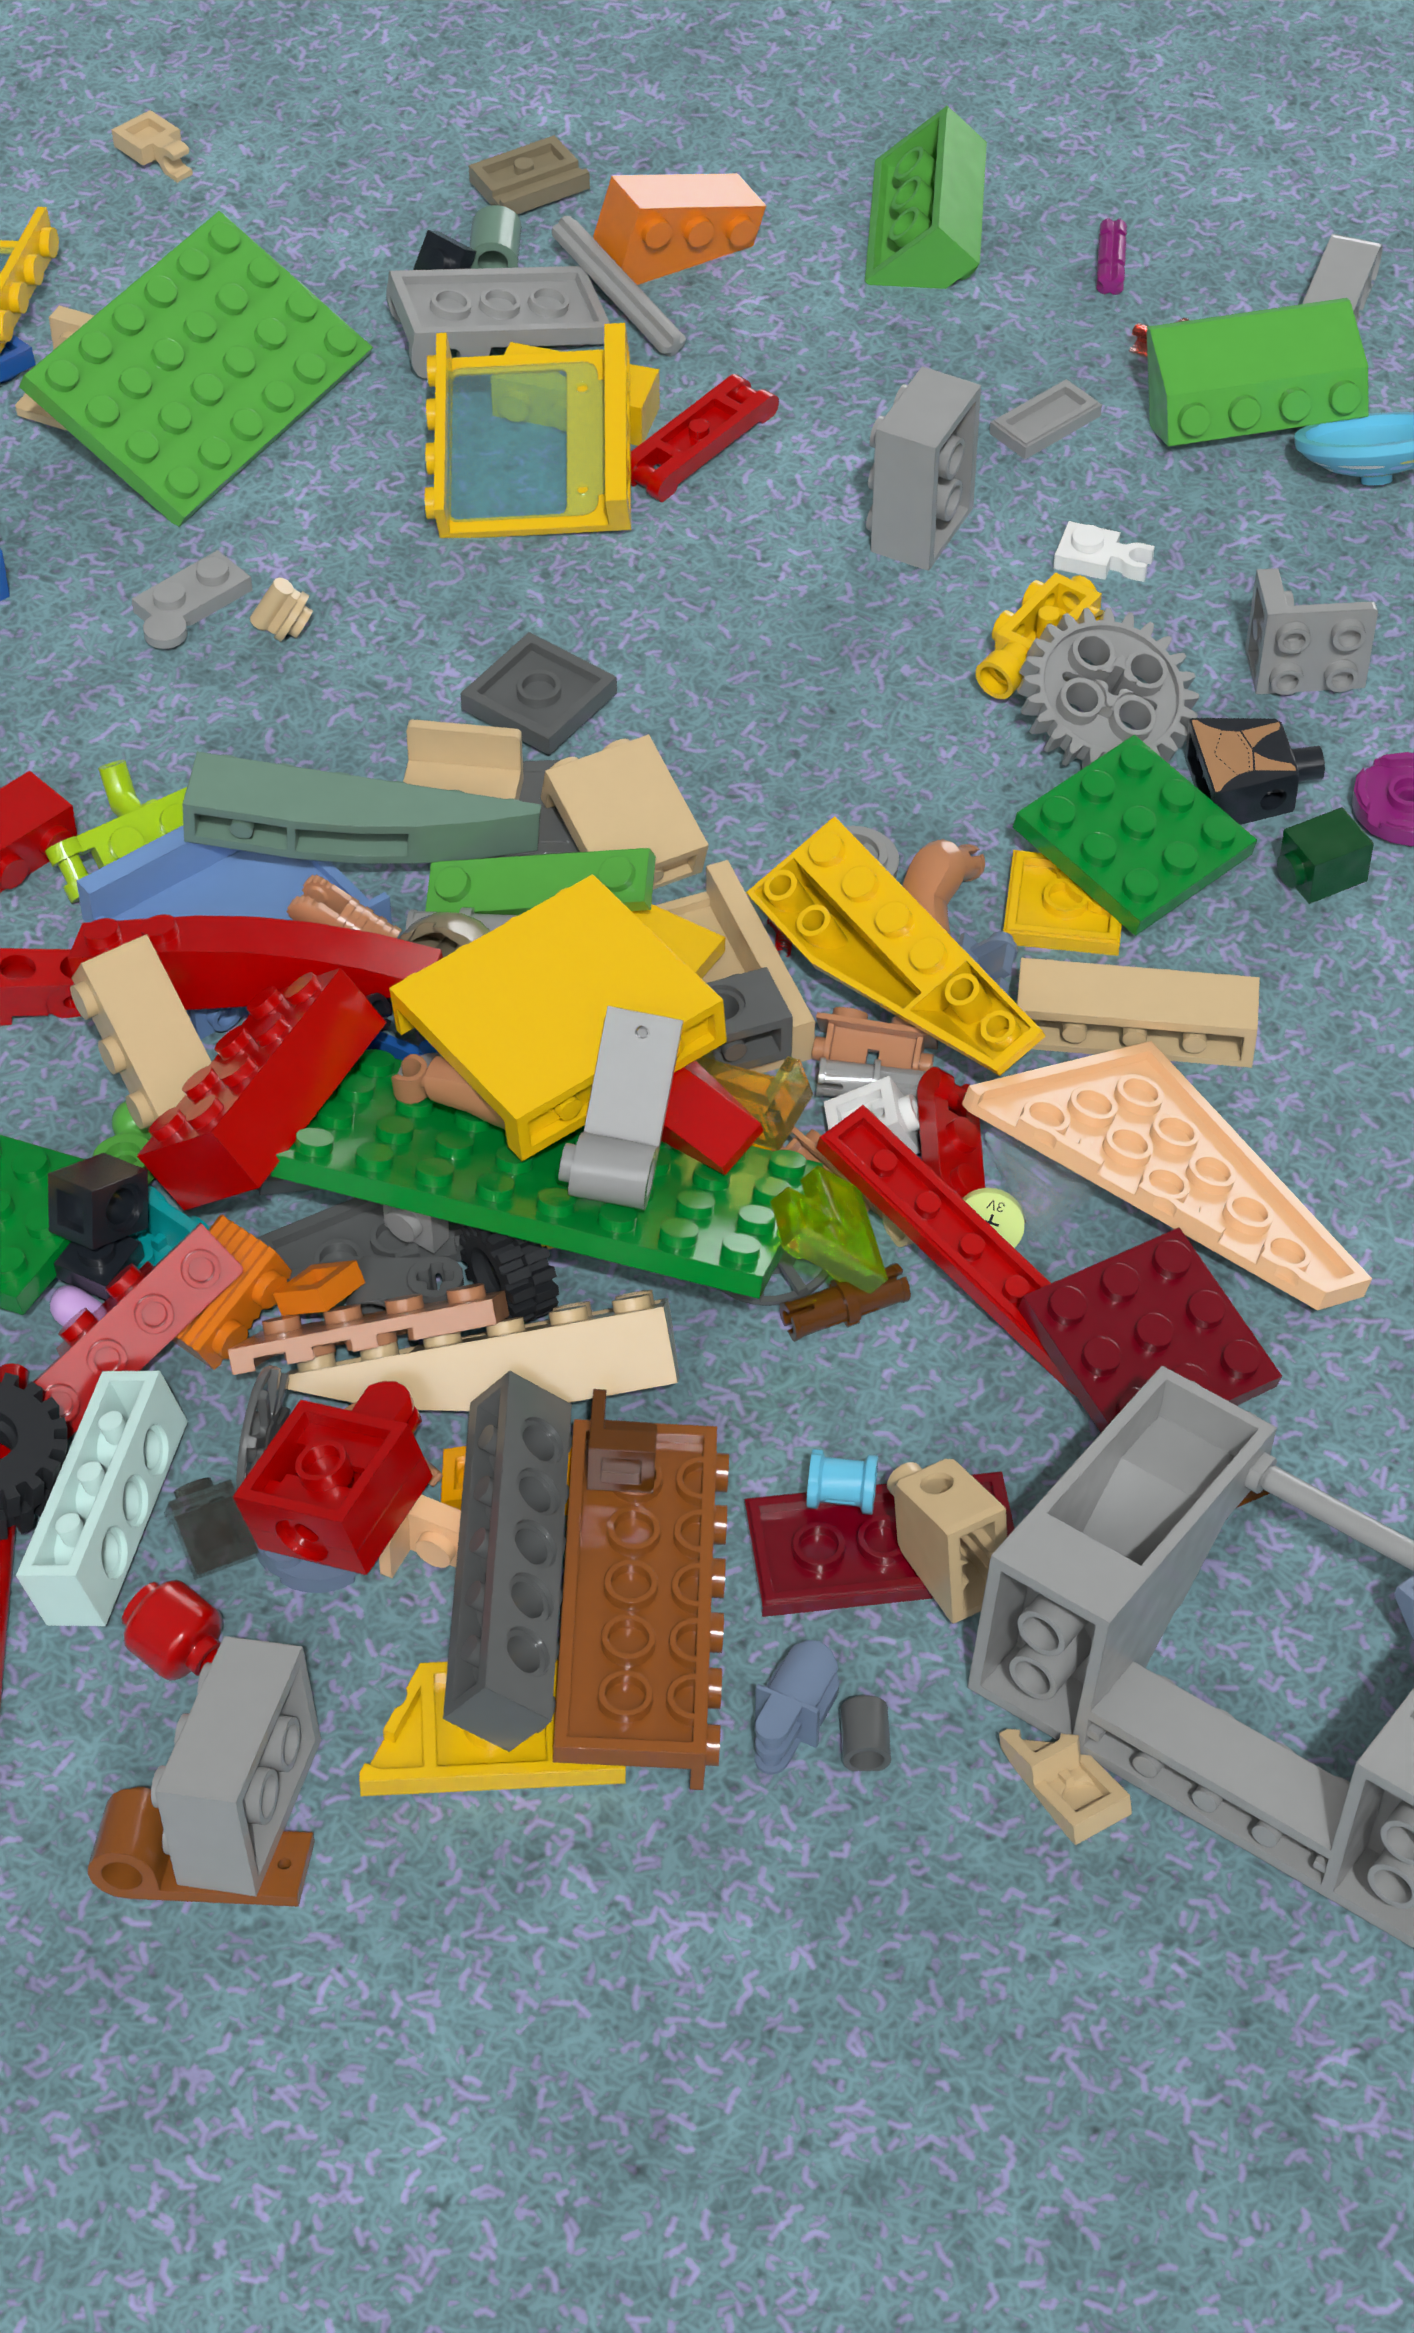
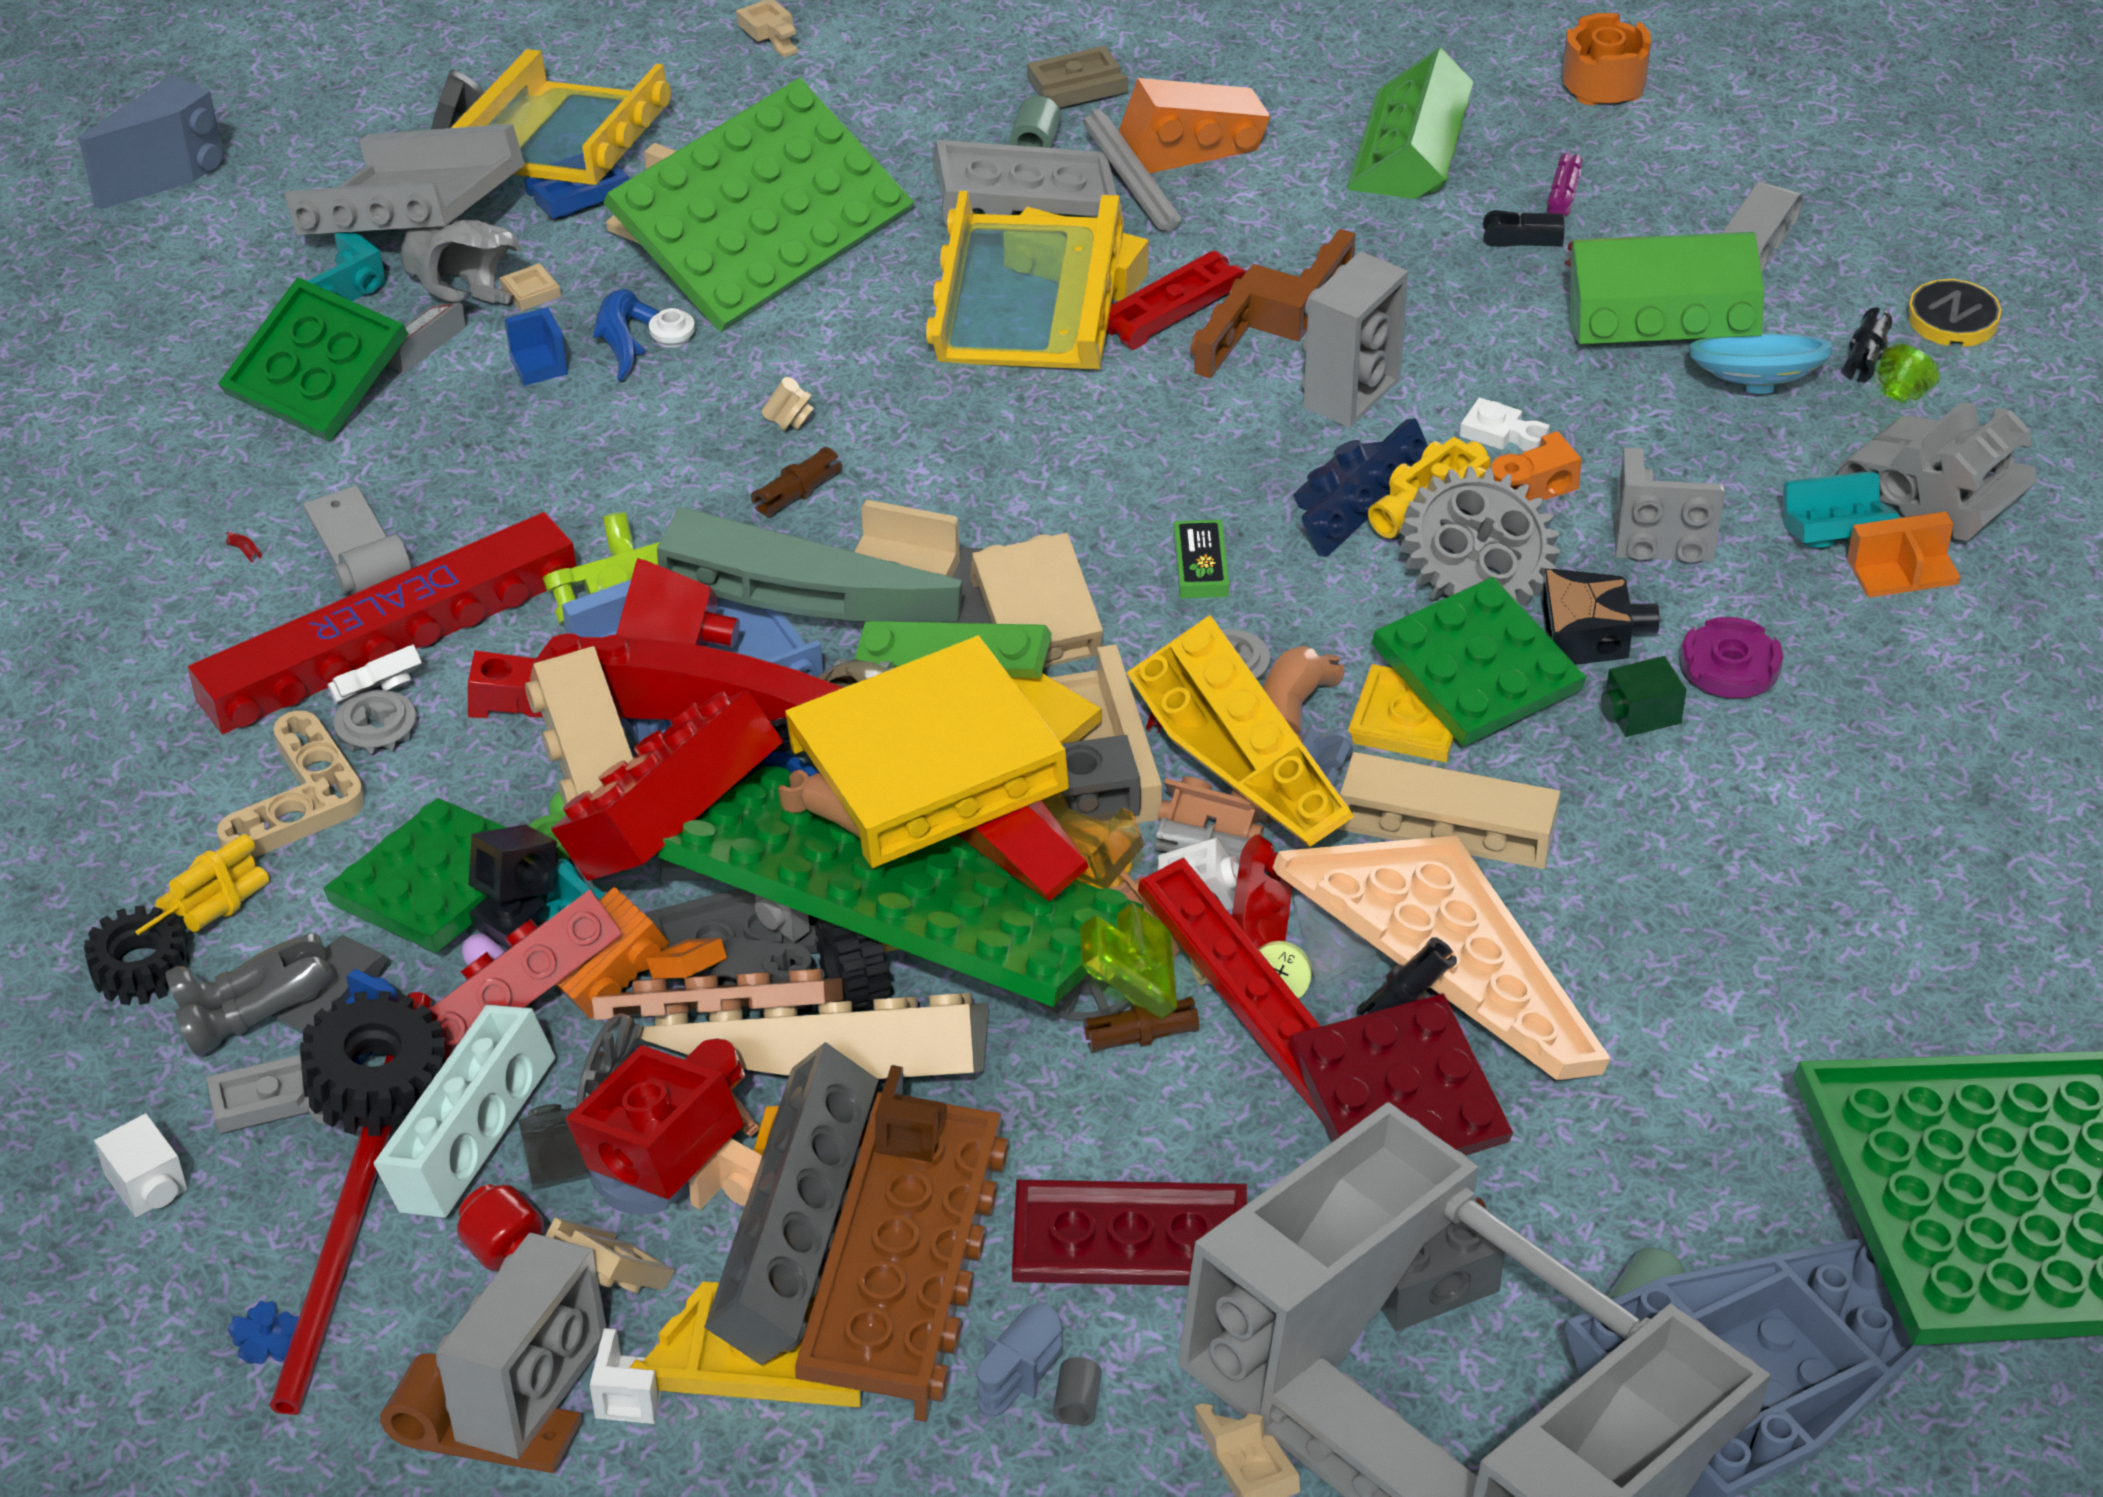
camera: 10 degrees right, 5 degrees down
(53, 535) = (612, 326): none -> blue piece
(122, 528) = (672, 327): none -> white plate
(189, 598) = (714, 389): light grey hinge -> none
(211, 875) = (673, 609): none -> red torso
(311, 702) = (796, 482): none -> reddish brown pin
(325, 1652) = (614, 1259): none -> tan plate
(333, 906) = (766, 644): nougat hinge -> none
(353, 1801) = (619, 1390): none -> white panel
(443, 253) = (989, 130): black plate -> none
(539, 692) = (990, 493): dark grey plate -> none
(625, 1110) = (964, 833): door -> none
(794, 745) = (1201, 559): none -> tile
(813, 431) = (1268, 303): none -> dark orange bracket
(842, 1481) = (1100, 1173): medium azure bush -> none
(947, 1532) = (1174, 1205): tan torso -> none
(952, 638) = (1351, 482): none -> dark blue bracket
(1045, 419) = (1478, 312): light grey tile -> none
(1077, 314) = (1523, 229): none -> black bar
(1131, 102) = (1606, 59): none -> orange brick
(1140, 1218) = (1410, 981): none -> black pin
(1158, 598) = (1546, 469): none -> orange leg
(1251, 1546) = (1445, 1274): none -> dark grey brick

